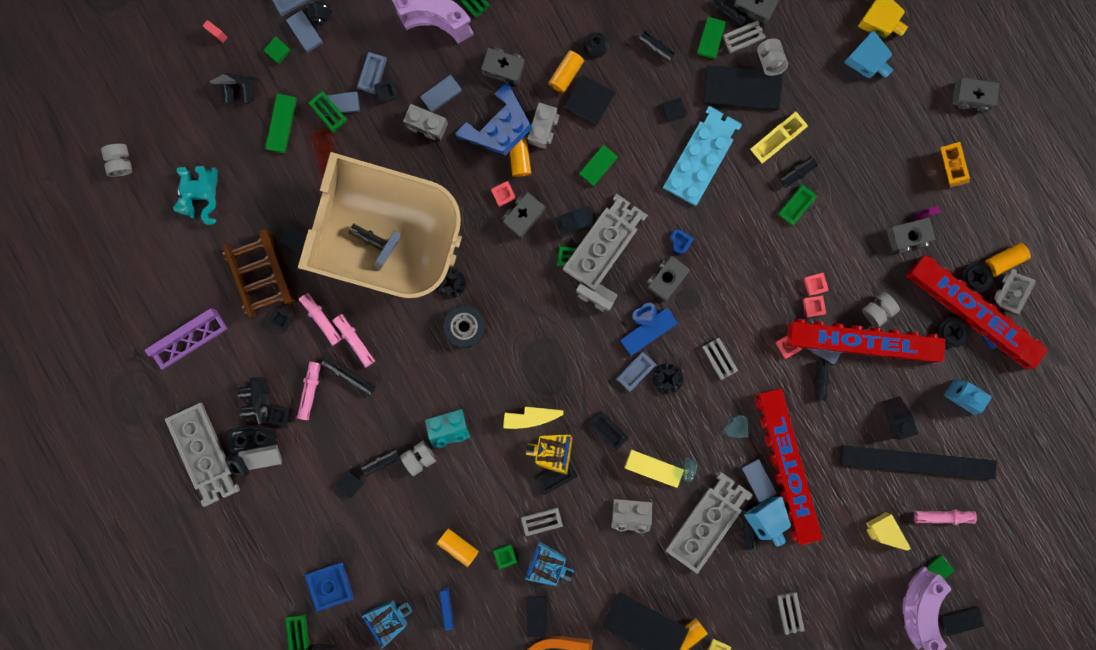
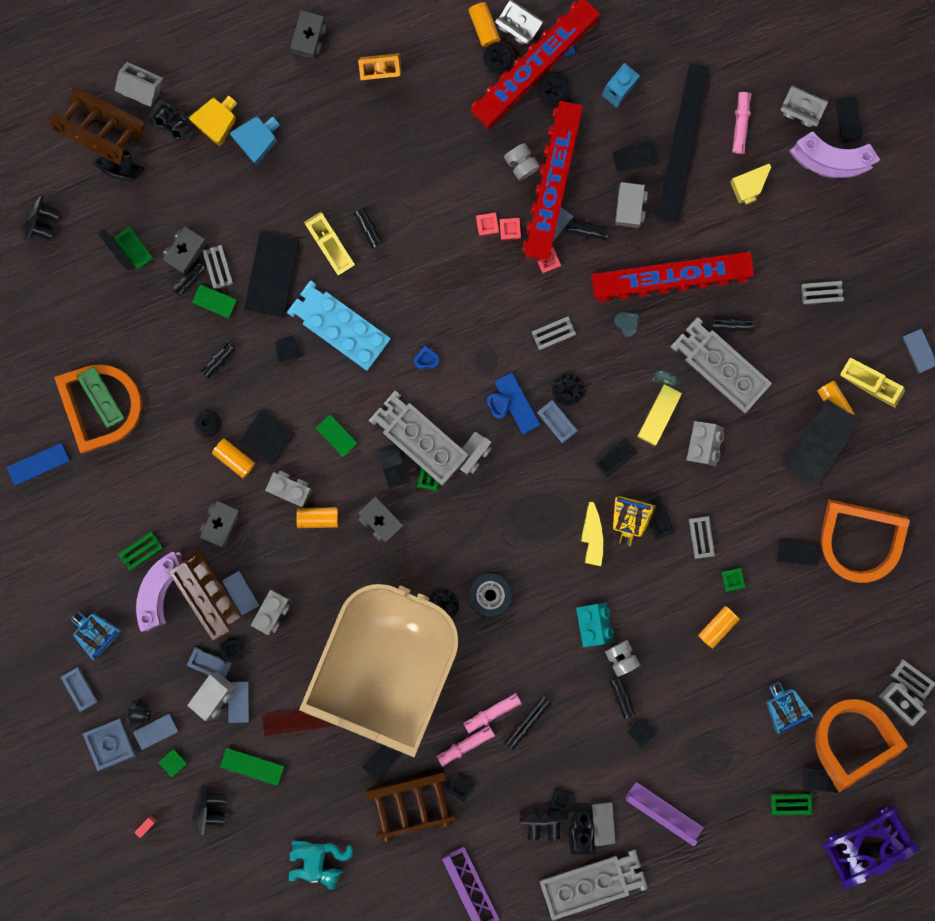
camera: 80 degrees left, 0 degrees up
(237, 465) = (609, 848): black tile -> none
(275, 514) = (664, 813): none -> medium lavender fence
(309, 389) = (535, 764): bright pink pin -> none
(329, 586) = (744, 766): blue tile -> none
(338, 124) = (261, 705): green tile -> none
(340, 76) = (212, 696): none -> light grey brick
(367, 237) = (385, 685): black pin -> none
(387, 251) = (403, 666): sand blue tile -> none
(427, 49) = (205, 594): none -> fence
(446, 608) = (781, 645): blue tile -> none
(503, 194) = (355, 539): coral tile -> none
(504, 129) = (288, 529): blue wing -> none
(548, 566) = (748, 536): torso -> none
(676, 270) = (458, 366): dark grey brick -> none
(758, 480) = (683, 308): sand blue tile -> none
(769, 520) = (725, 302): dark azure torso -> none
(772, 57) = (244, 240): light grey wheel -> none
(797, 205) = (402, 233): green tile -> none
(853, 418) = (629, 205): none -> light grey brick
(922, 232) = (443, 109): dark grey brick -> none
(927, 213) = (426, 101): magenta tile -> none
(940, 566) = (792, 134): green tile -> none
(970, 576) = (803, 106): none -> light grey bracket

